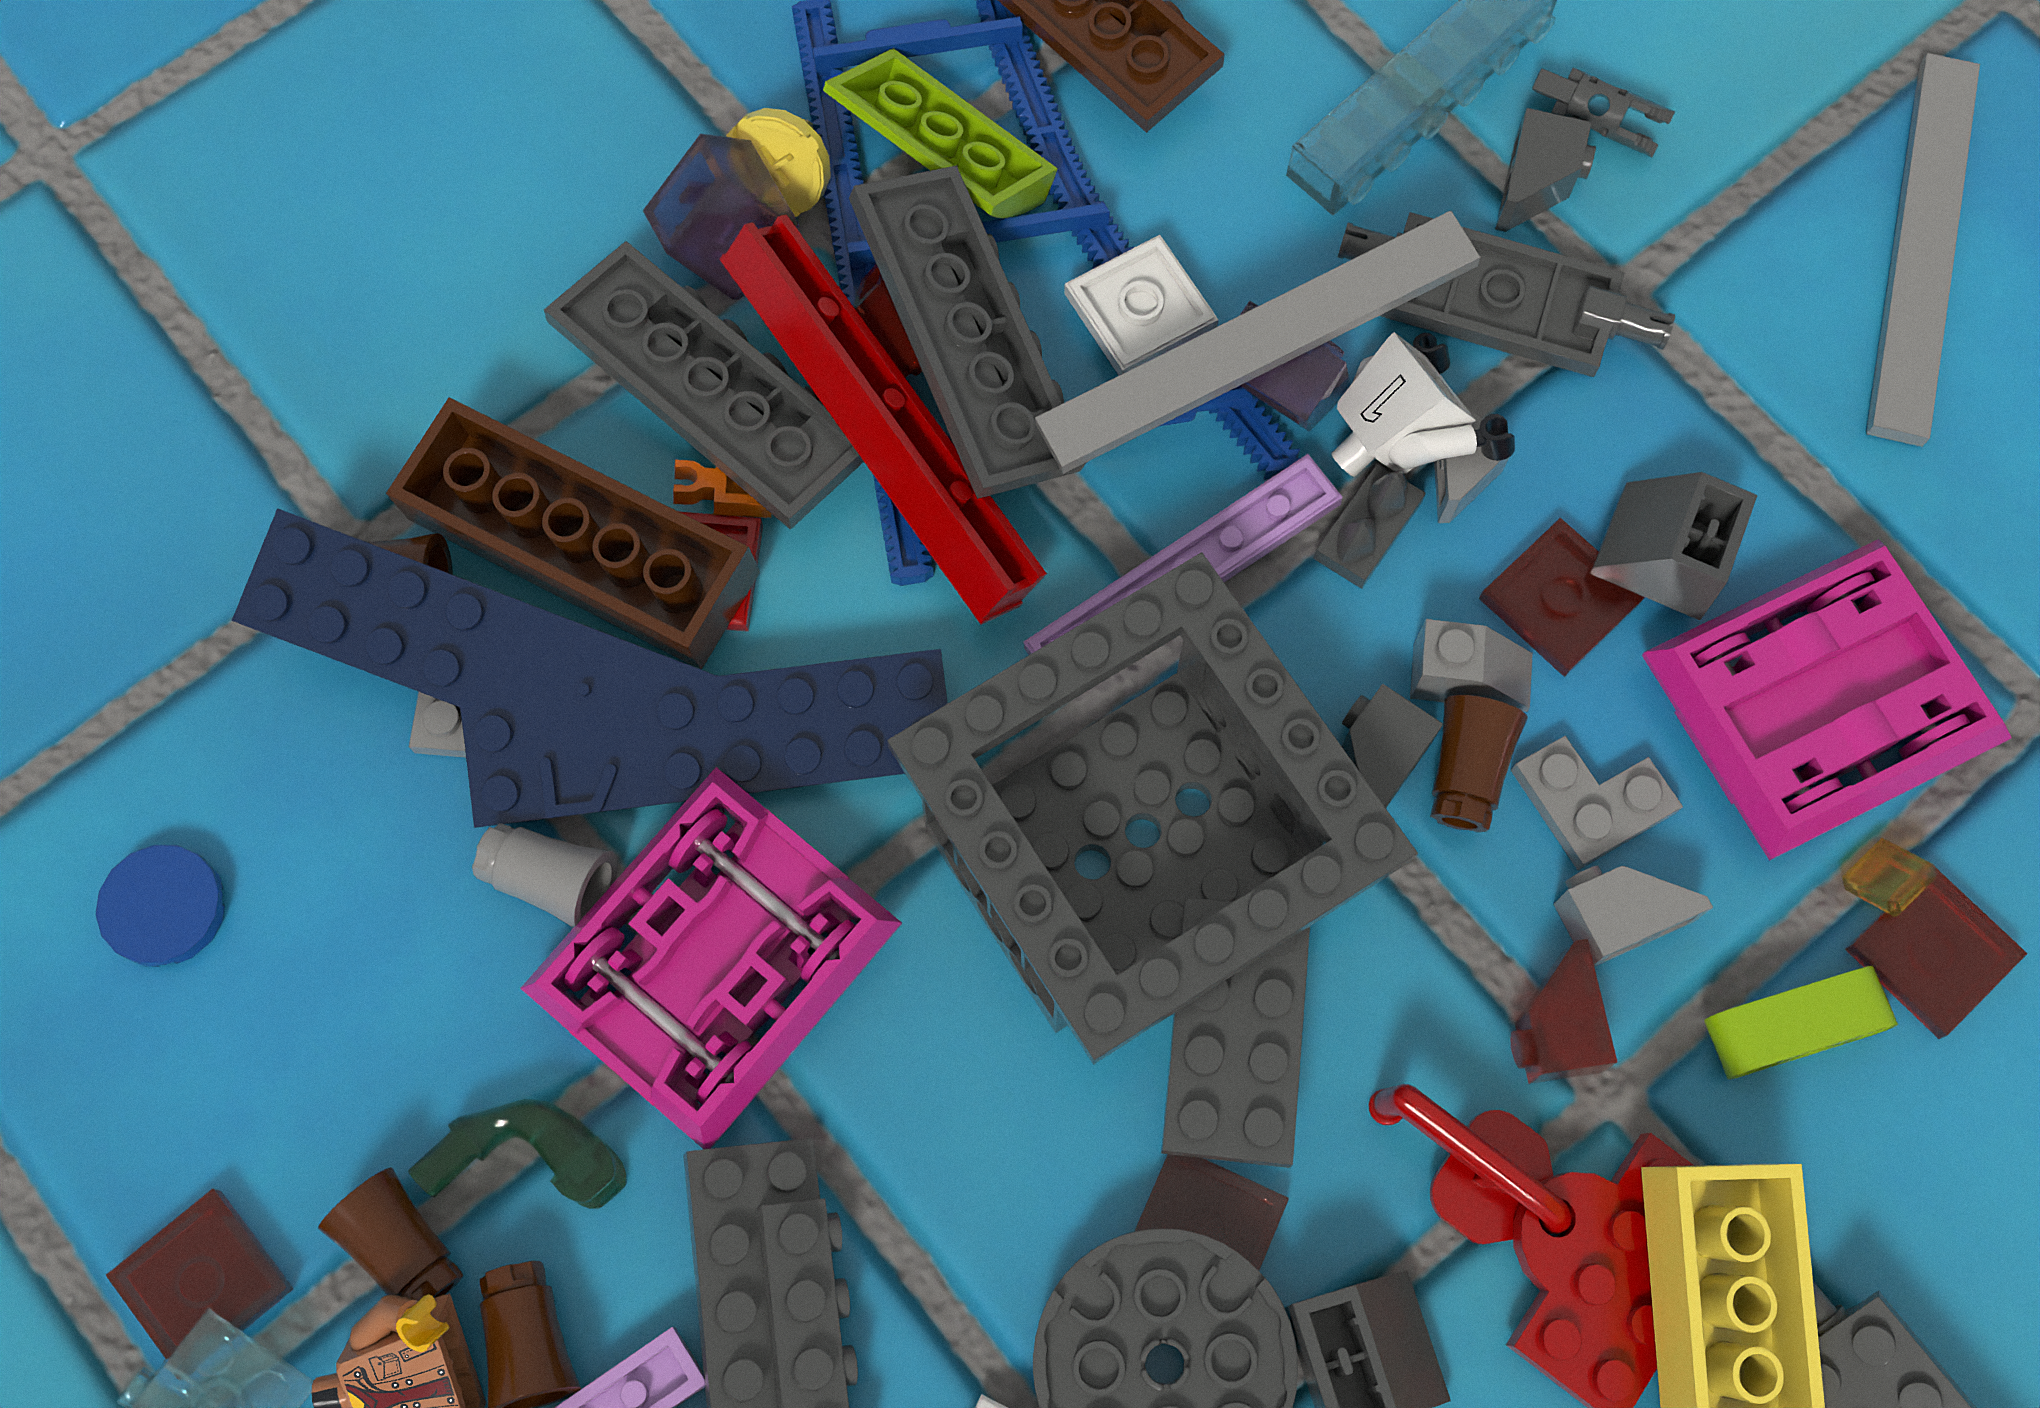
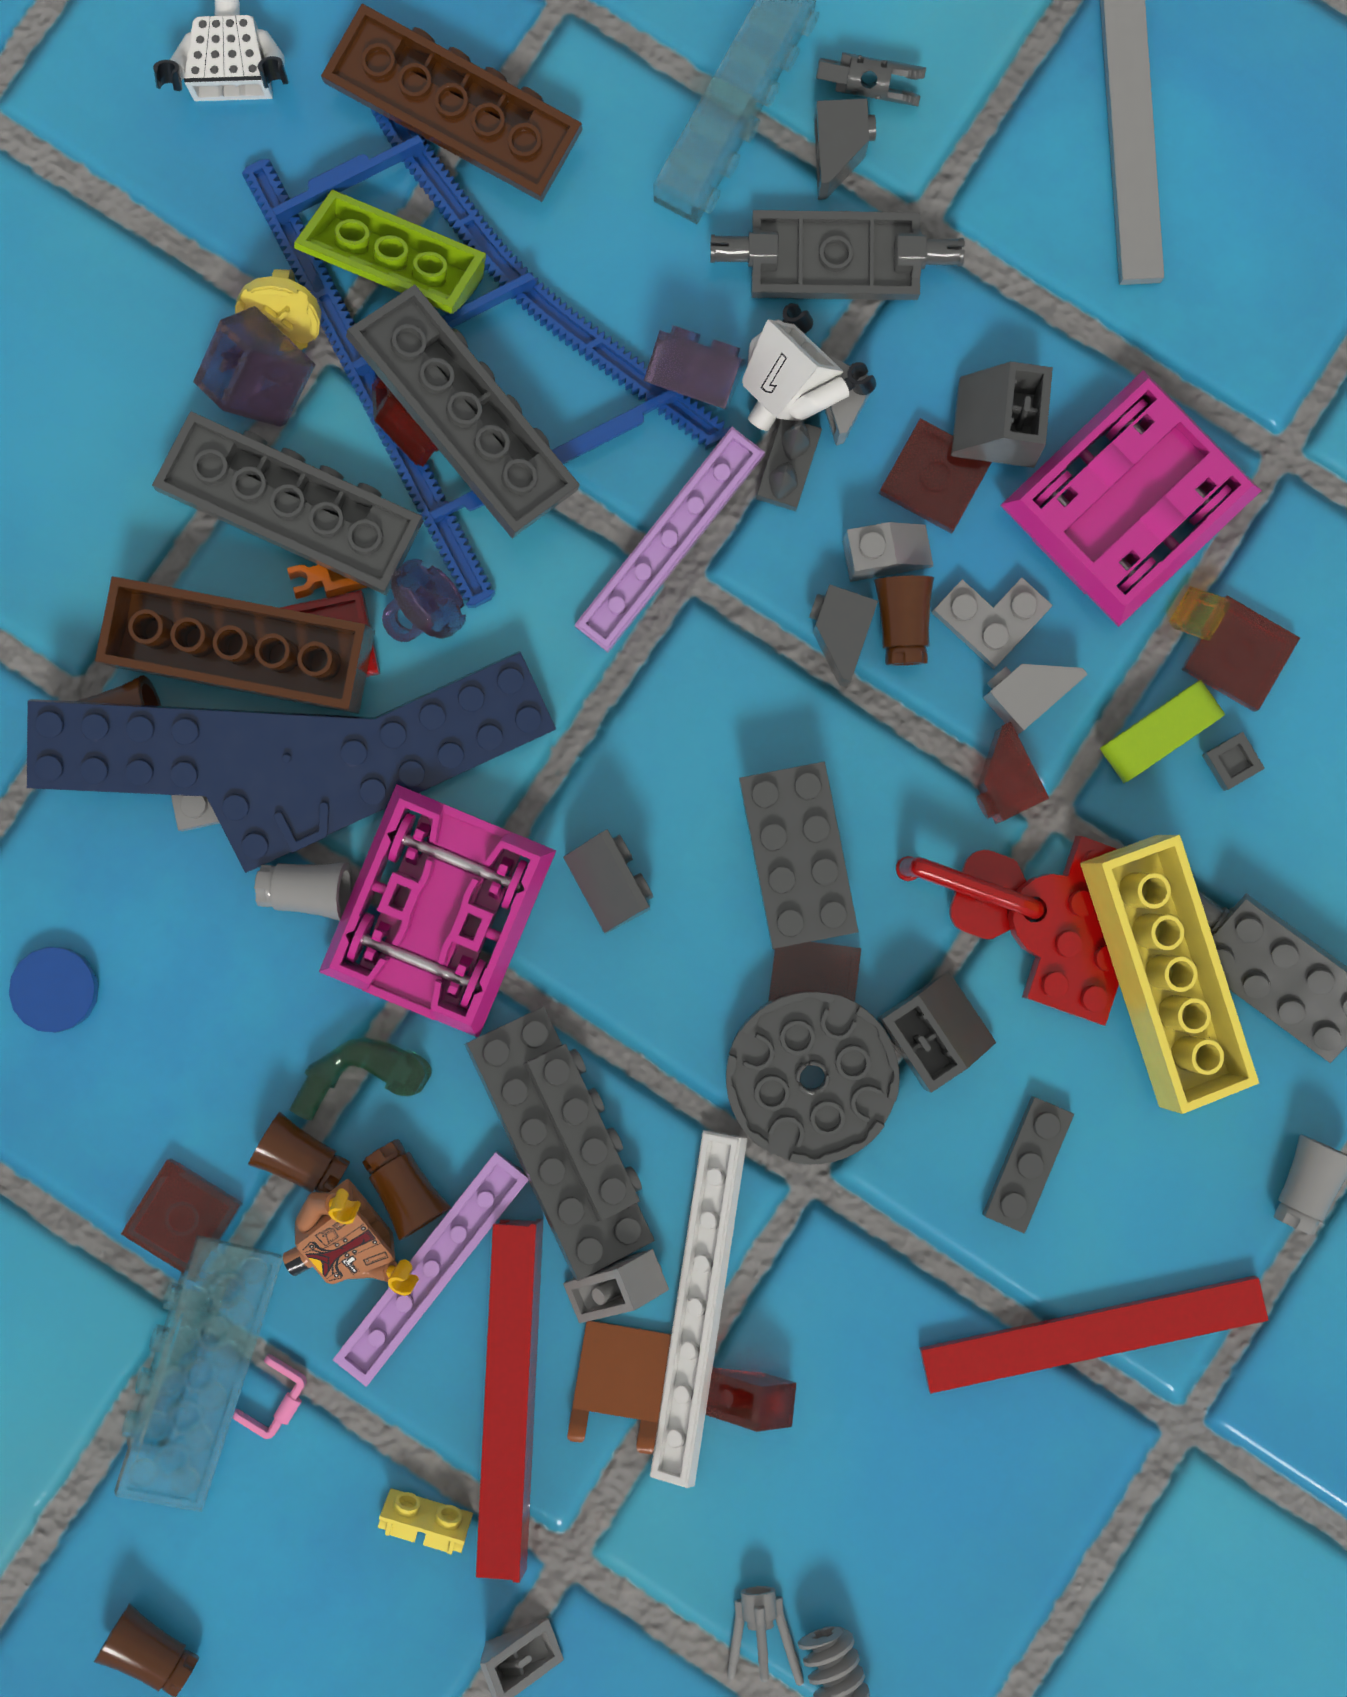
camera: 20 degrees left, 15 degrees up
(840, 548) = (426, 600): none -> tile
(882, 418) = (420, 492): red tile -> none
(958, 989) = (607, 881): none -> dark grey slope
(1140, 305) = (579, 345): white tile -> none
(1257, 341) = (675, 361): light grey tile -> none
(1282, 837) = (718, 647): dark grey plate -> none
(1895, 1096) = (1233, 761): none -> dark grey plate

